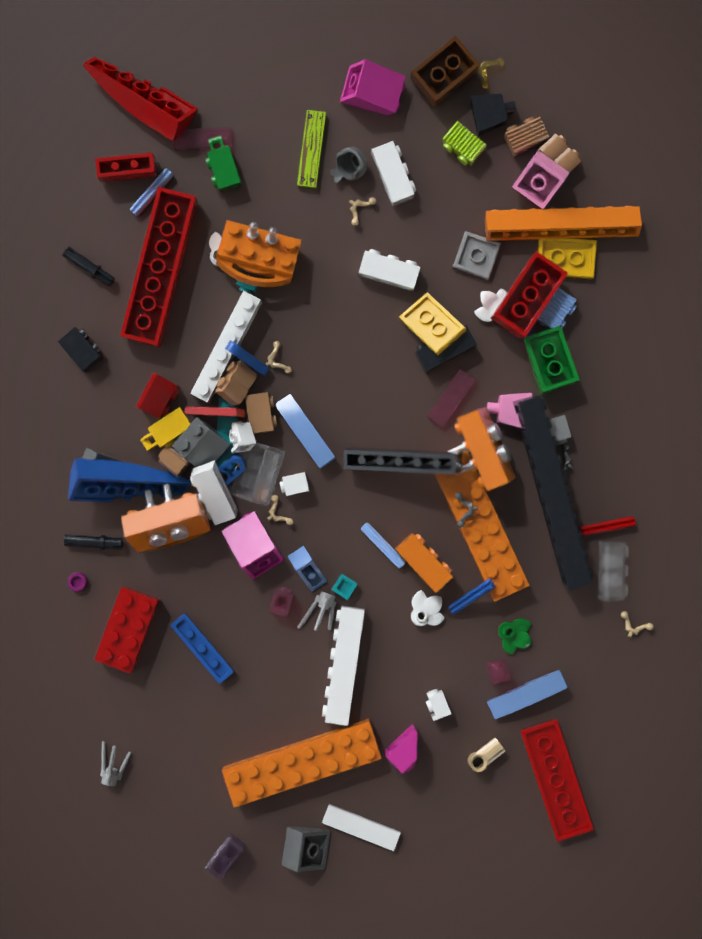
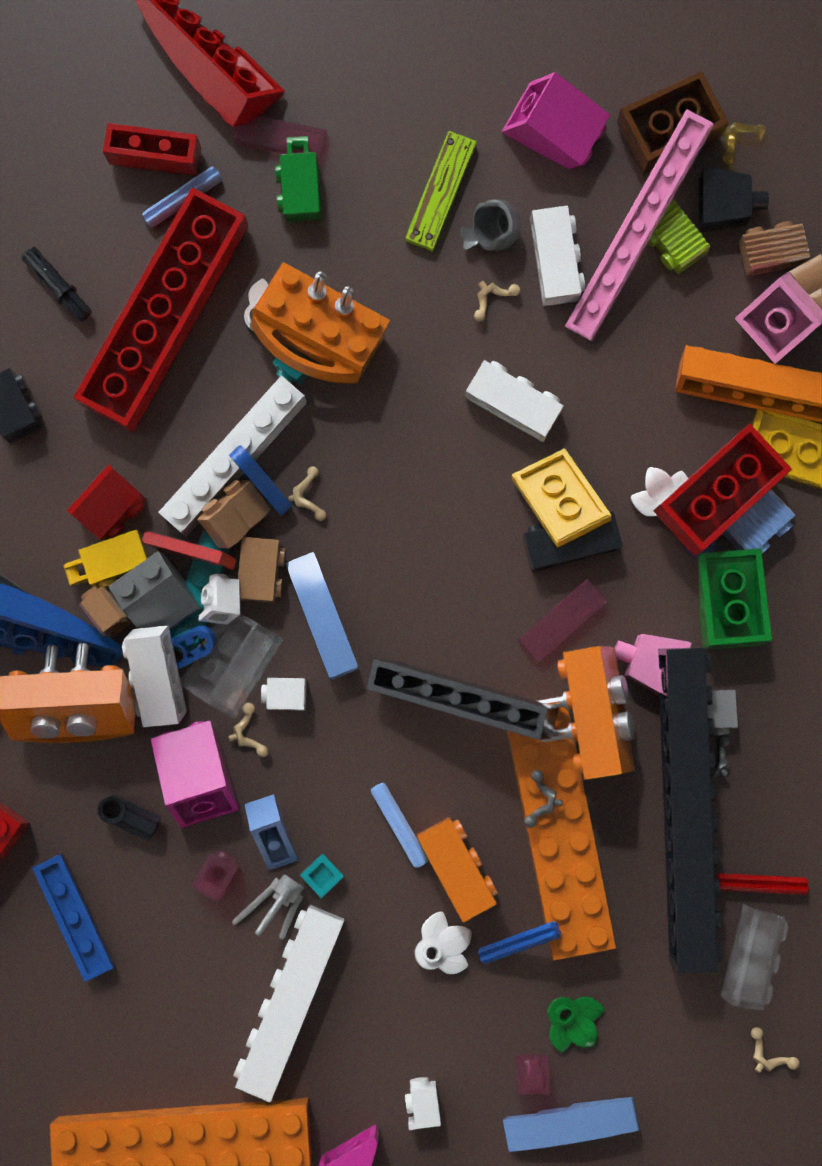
camera: 20 degrees right, 5 degrees down
(222, 580) = (132, 817): none -> black piece
(440, 142) = (639, 225): none -> bright pink tile
(476, 255) = (654, 411): light grey tile -> none

